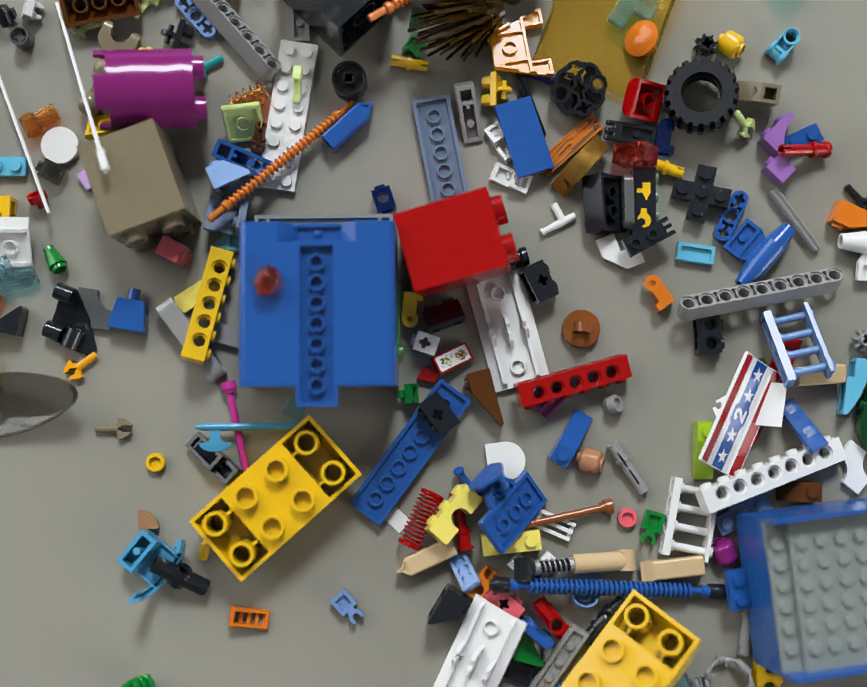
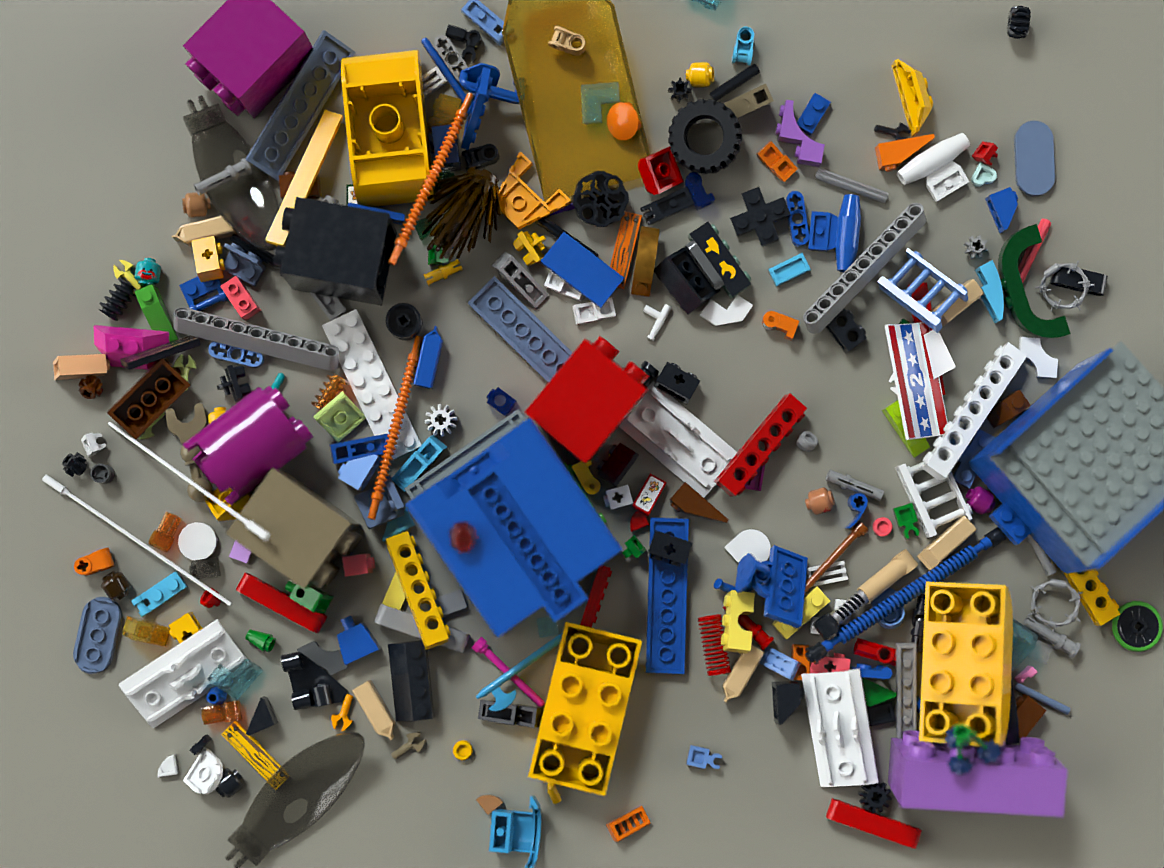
camera: 30 degrees left, 0 degrees up
(92, 241) = (280, 602): none -> red beam
(107, 380) = (375, 709): none -> tan piece
(117, 254) = (311, 598): none -> green torso
(152, 378) = (411, 681): none -> black slope
(179, 575) = (549, 828): black piece -> none
(258, 138) = (362, 422): reddish brown pin -> none
(283, 203) = (419, 462): none -> medium azure slope
(297, 76) = (363, 354): yellowish green bar -> none
(331, 178) = (436, 425): none -> white gear
(350, 412) = (596, 595): none -> red piece
(397, 519) = (695, 658): white sticker -> none
(570, 439) = (791, 494): blue slope -> none
(581, 328) = (738, 396): dark orange tile -> none
(618, 490) = (860, 508): none -> blue panel
(635, 154) = (684, 222): clear red brick -> none
(647, 237) = (741, 284): black hinge -> none
(665, 167) = (715, 215): yellow pin -> none
(745, 125) = (759, 130): yellowish green bar -> none
(745, 158) = (776, 161): none -> orange slope
(757, 70) = (734, 82): none -> black axle
(803, 427) = (973, 353): blue tile -> none
(811, 150) = (826, 118): red pin -> none

